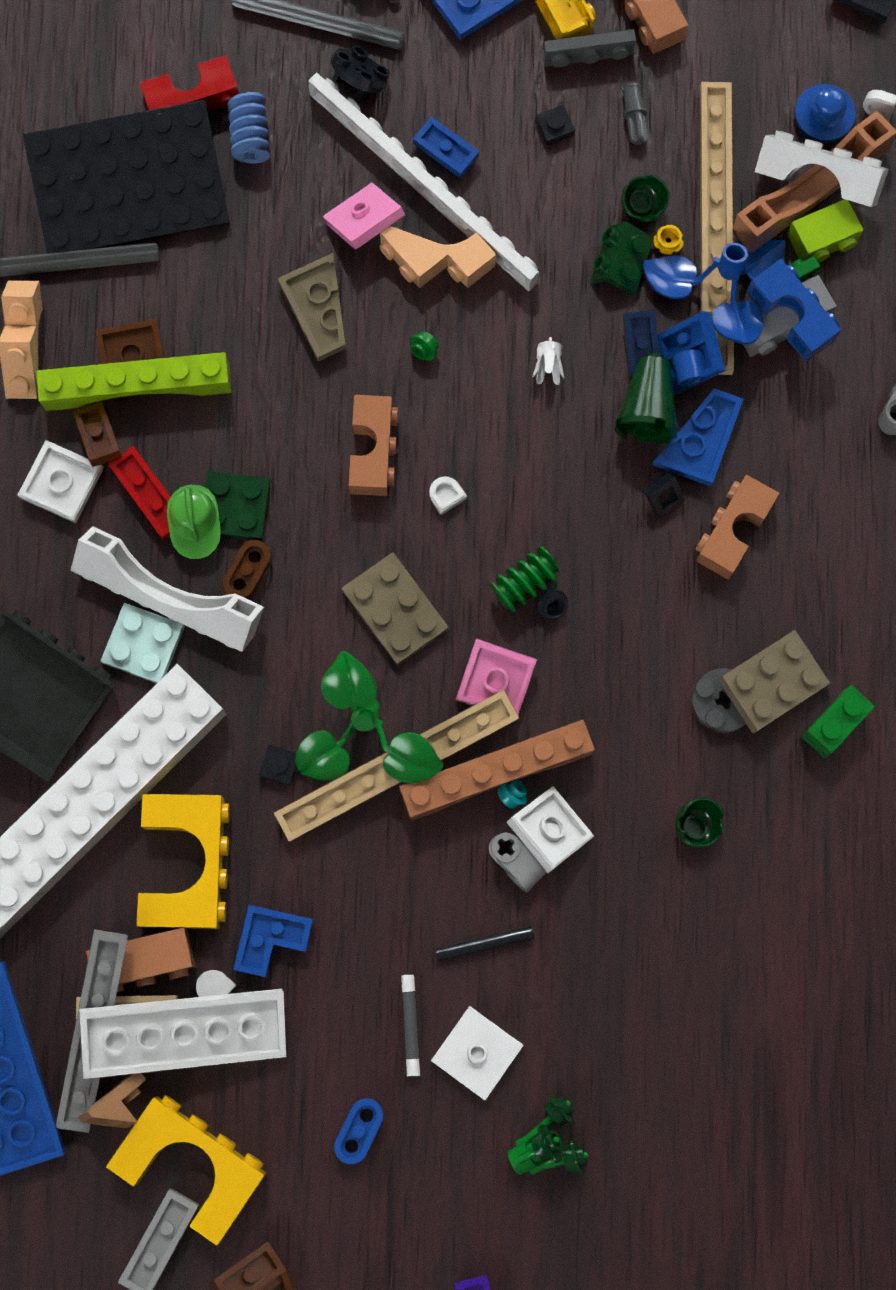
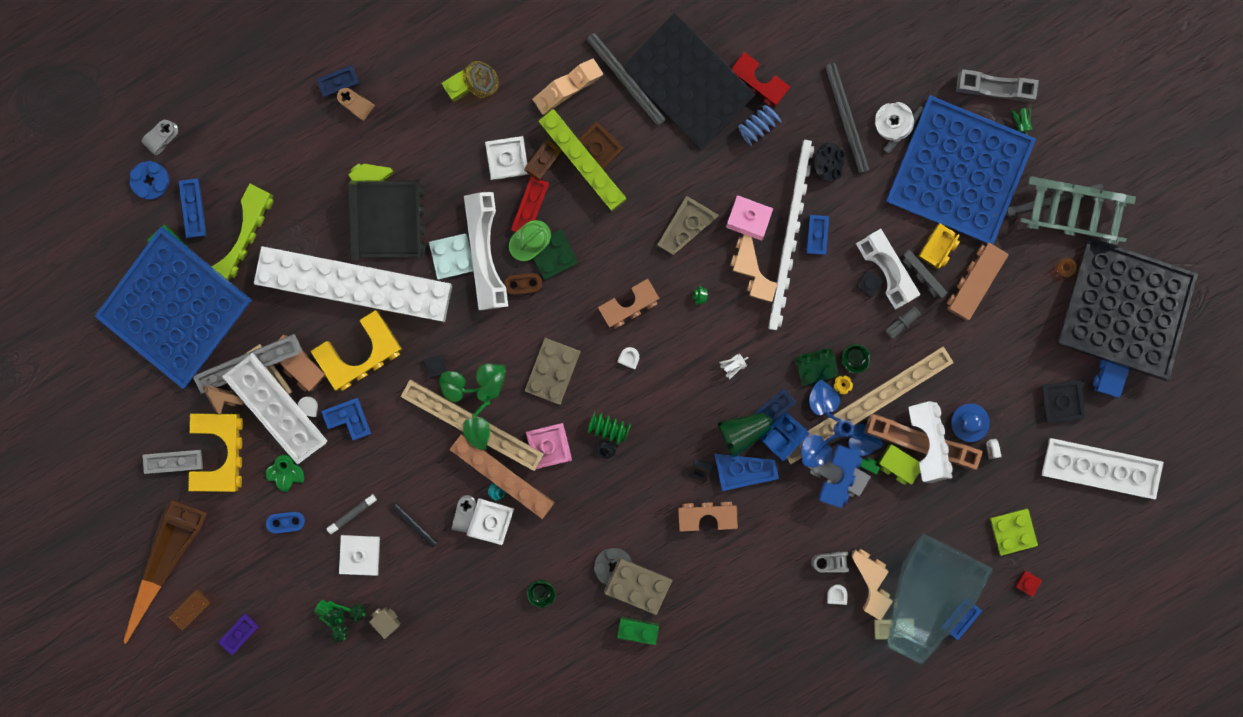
camera: 60 degrees right, 10 degrees up
(291, 1086) = (284, 476): none -> green plate
(526, 81) = (899, 284): none -> white arch
(598, 1078) = (384, 621): none -> dark tan brick

